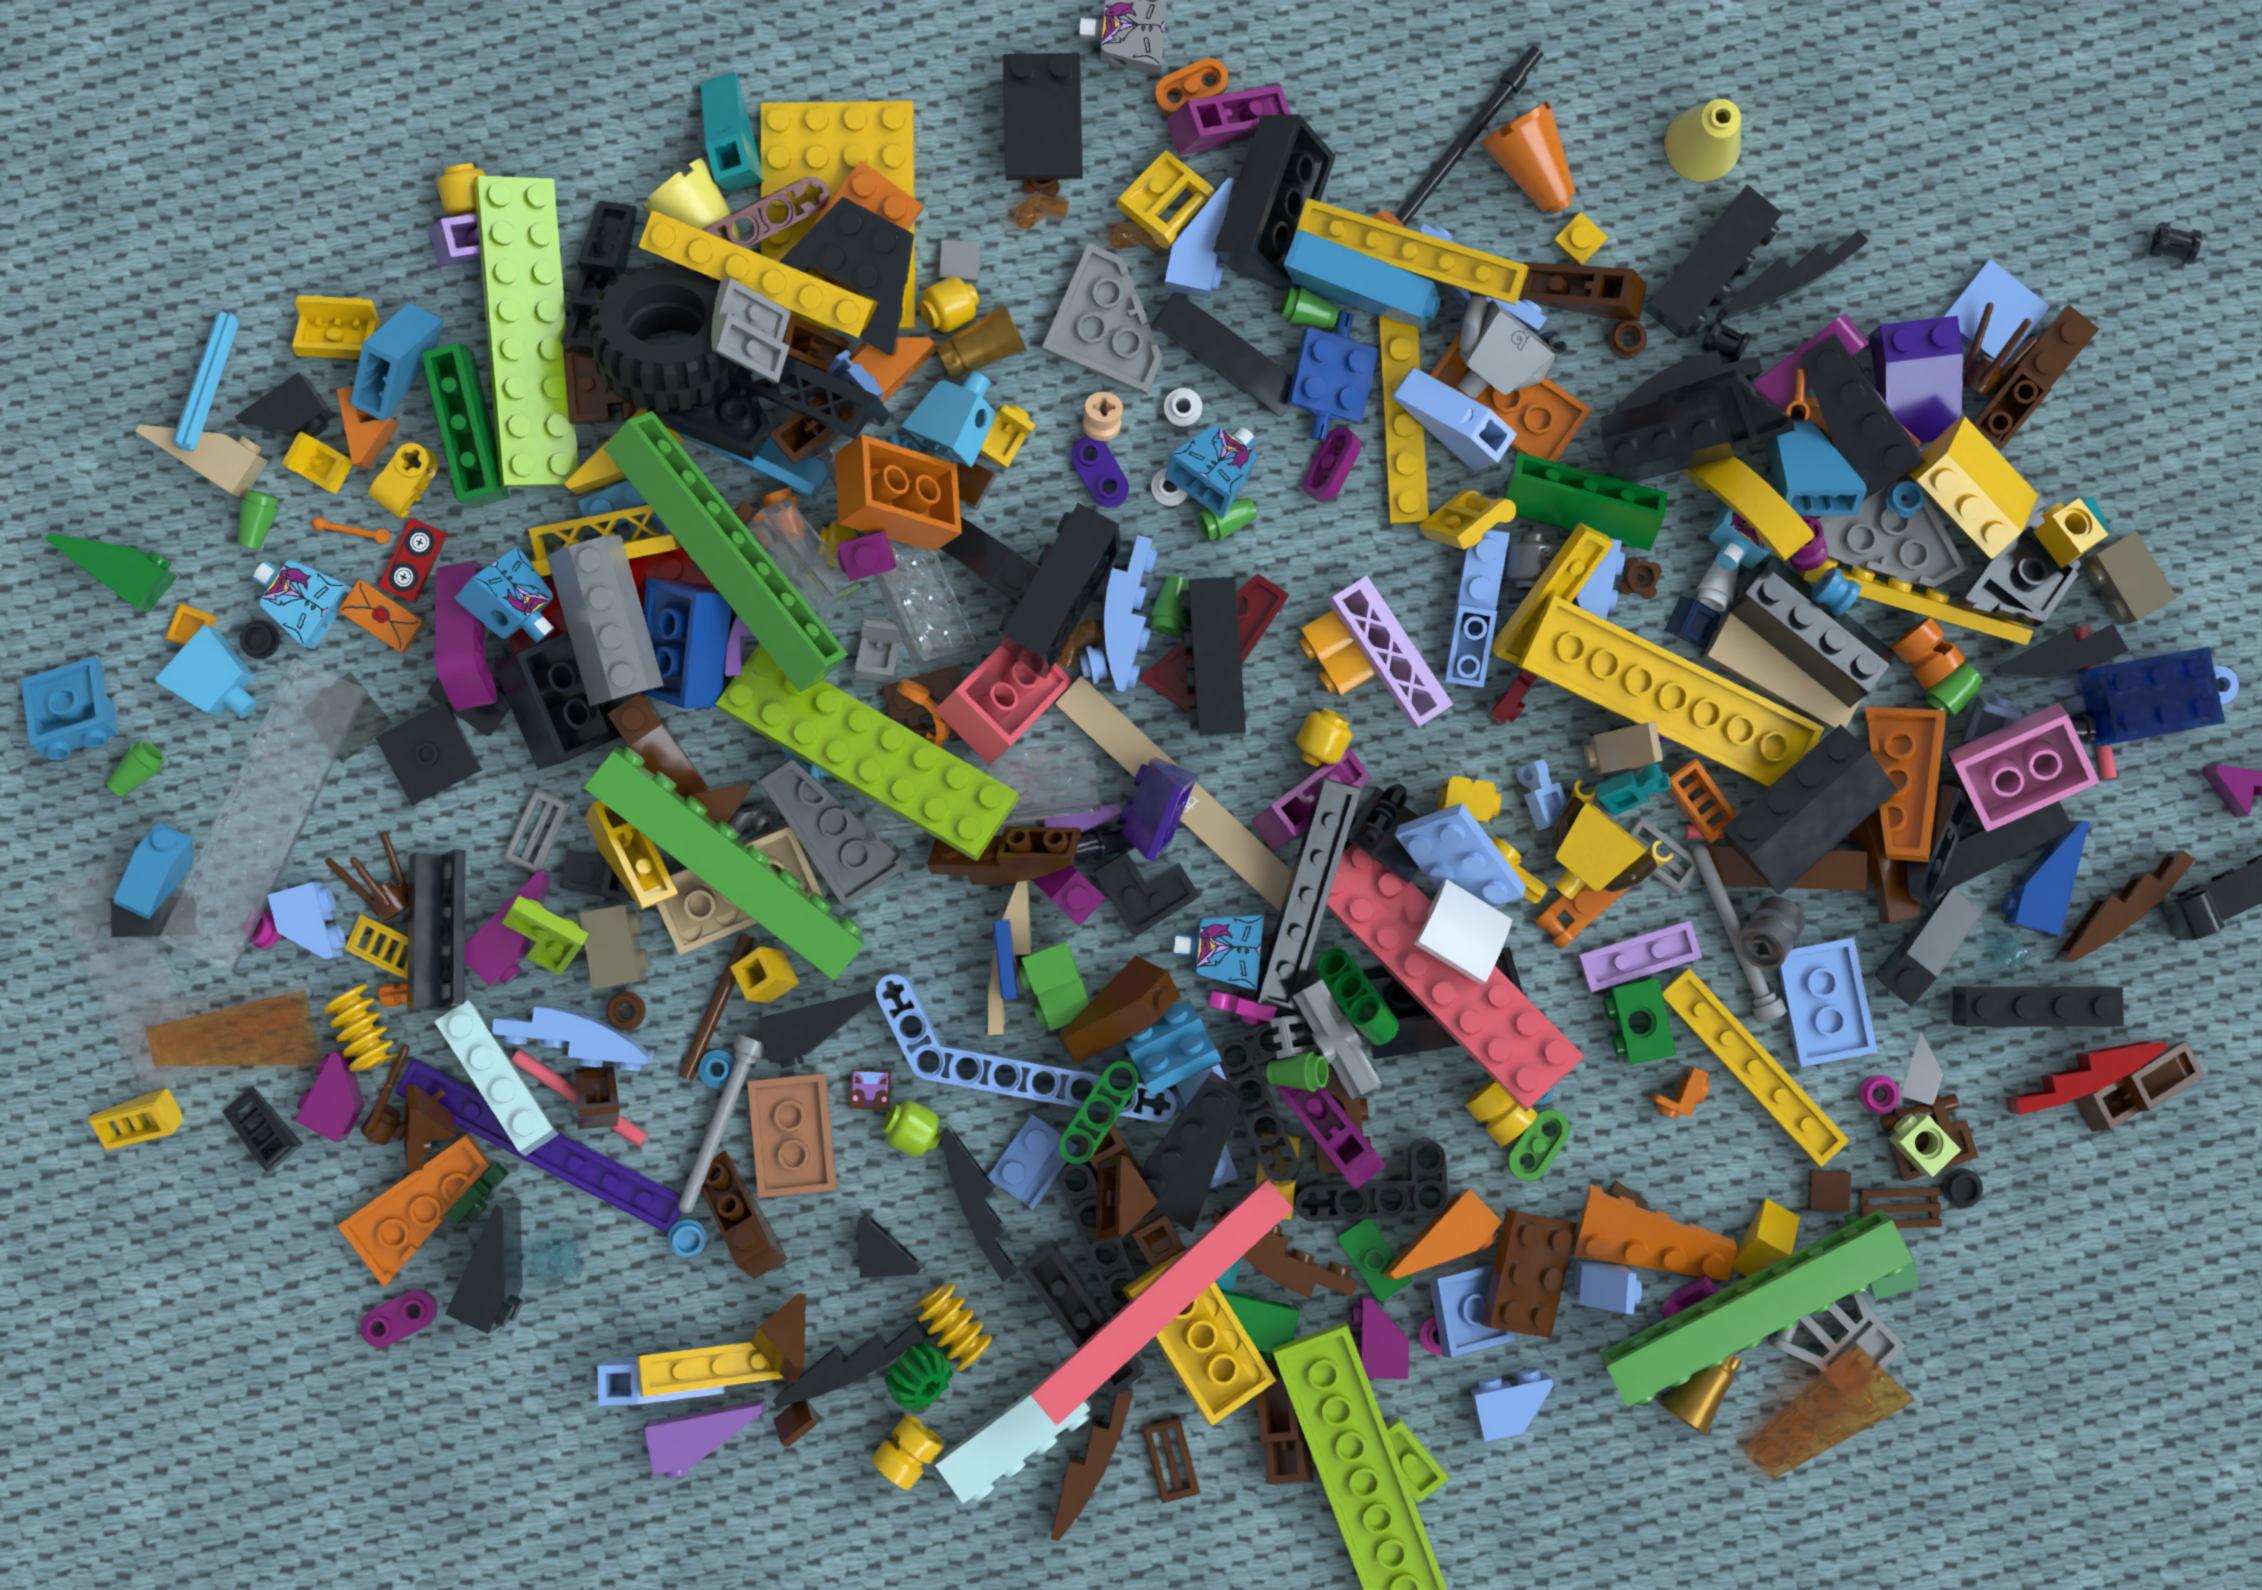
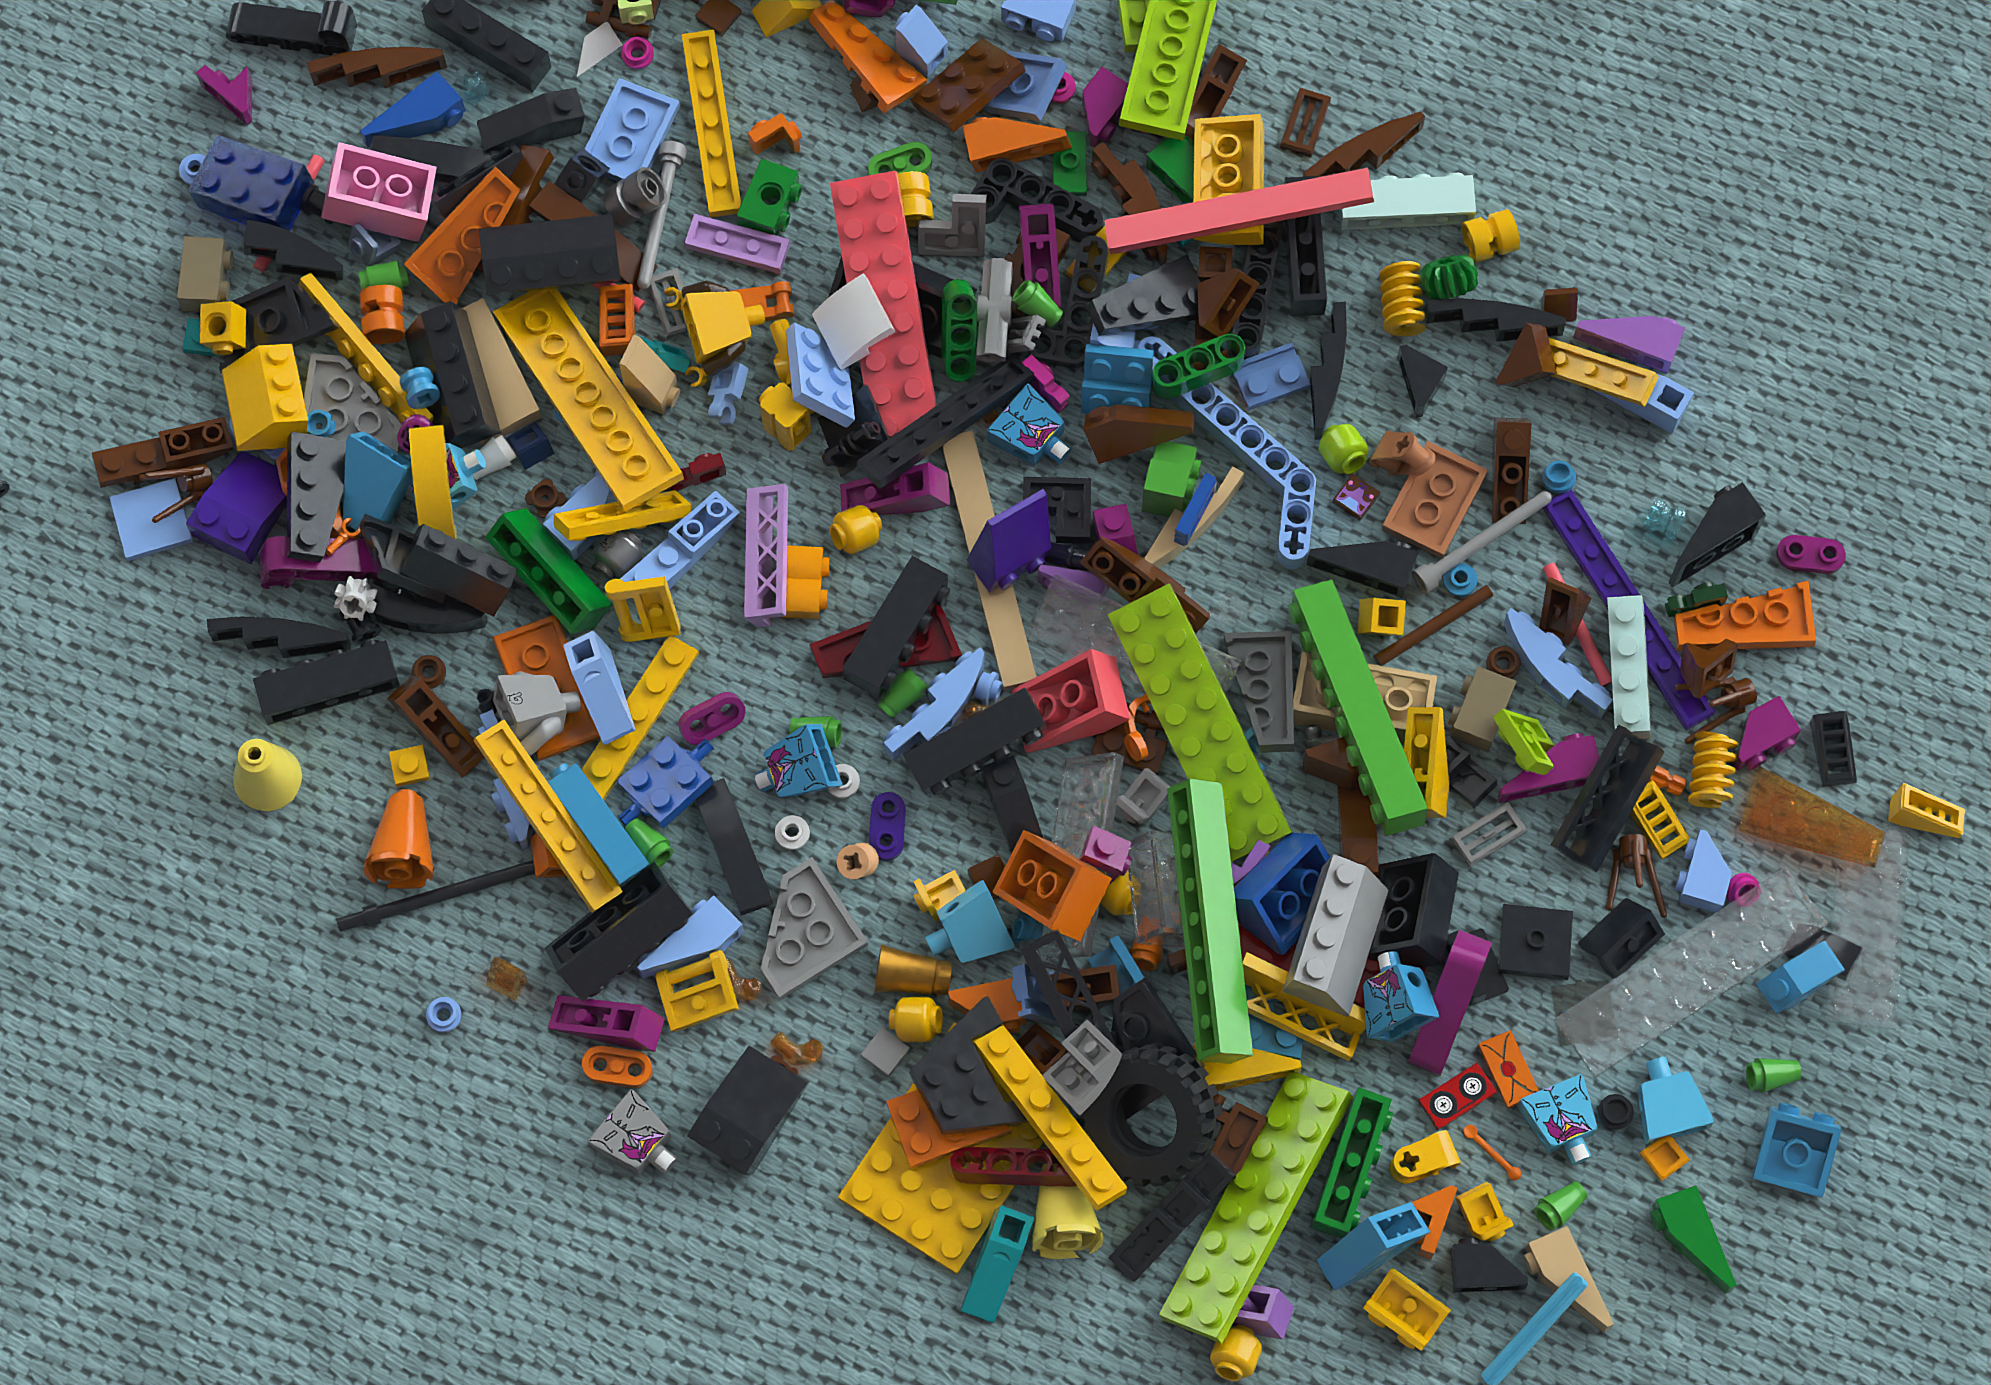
camera: 150 degrees left, 15 degrees down
(353, 810) = (1622, 937): none -> black panel
(848, 1157) = (1402, 455): none -> nougat piece
(1348, 102) = (506, 978): none -> clear orange slope
(1391, 25) = (441, 1004): none -> light blue plate
(1426, 1108) = (957, 237): none -> light grey plate
(1742, 344) = (364, 598): none -> white gear
(1838, 919) = (582, 175): none -> black brick

